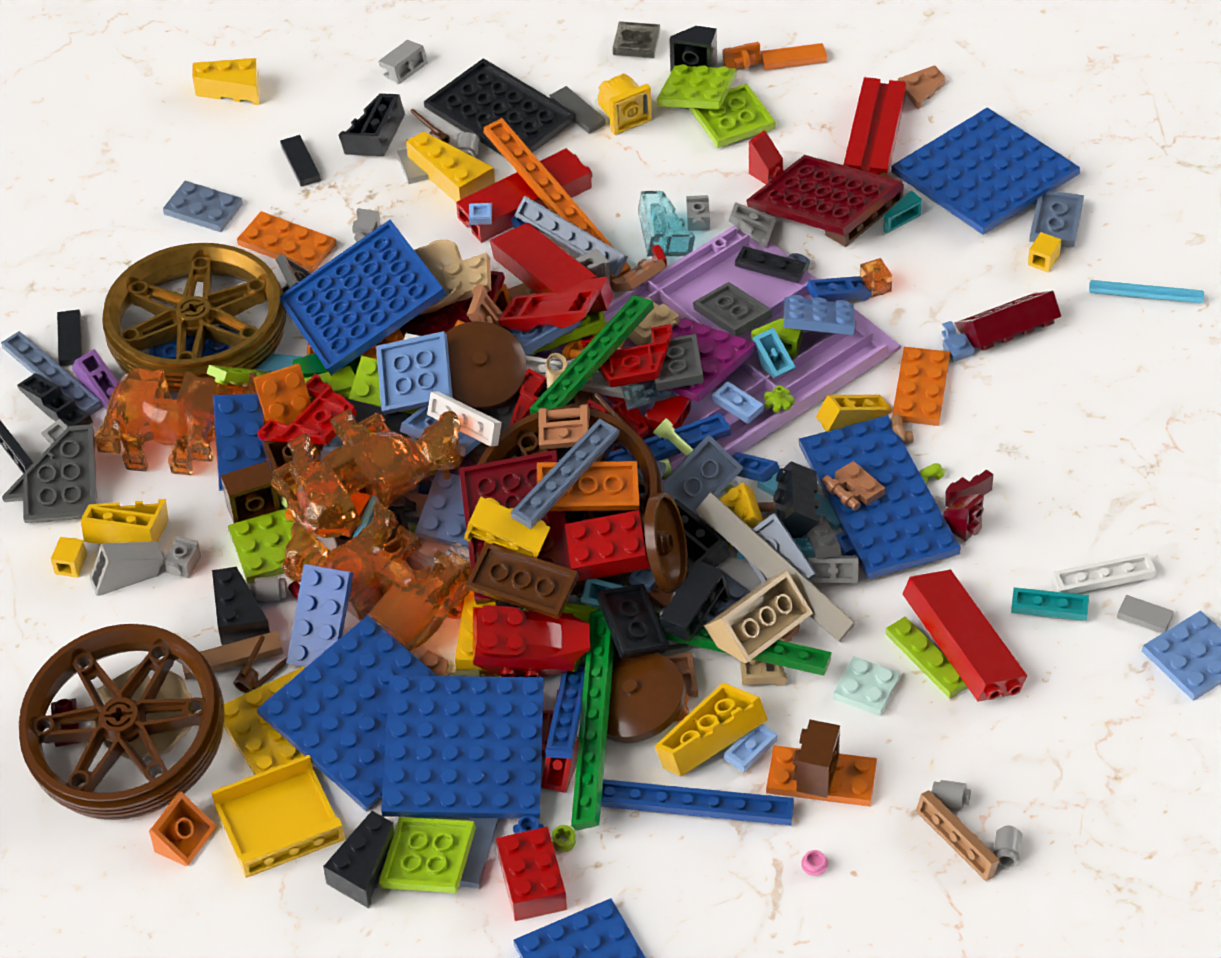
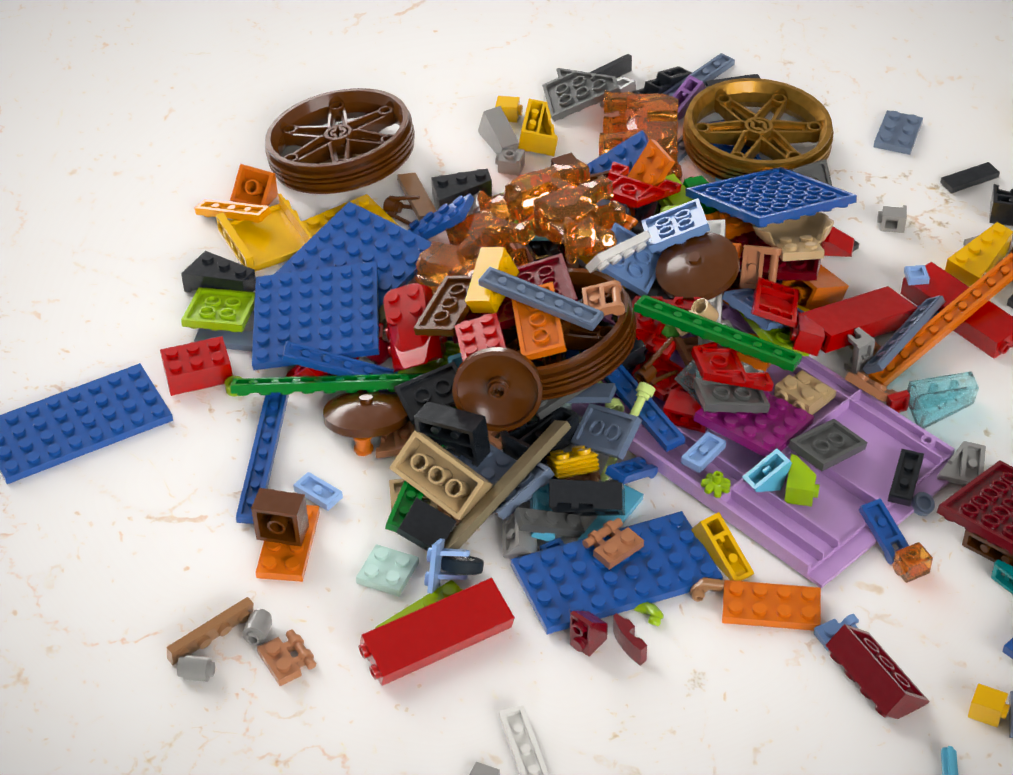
camera: 85 degrees right, 5 degrees down
(227, 850) = (233, 210): none -> light orange plate
(232, 375) = (685, 156): lime plate -> none
(274, 236) = (870, 179): orange plate -> none
(527, 822) = (243, 364): blue plate -> none
(698, 212) = (971, 427): light grey brick -> none
(710, 728) = (329, 457): yellow wedge -> none
(814, 863) = (194, 537): bright pink plate -> none
(819, 315) = (826, 503): medium blue plate -> none
(826, 637) = (425, 525): none -> black tile
(885, 620) = (455, 562): none -> plate
(991, 777) = (279, 660): none -> nougat plate
(1050, 604) = (484, 705): teal plate -> none

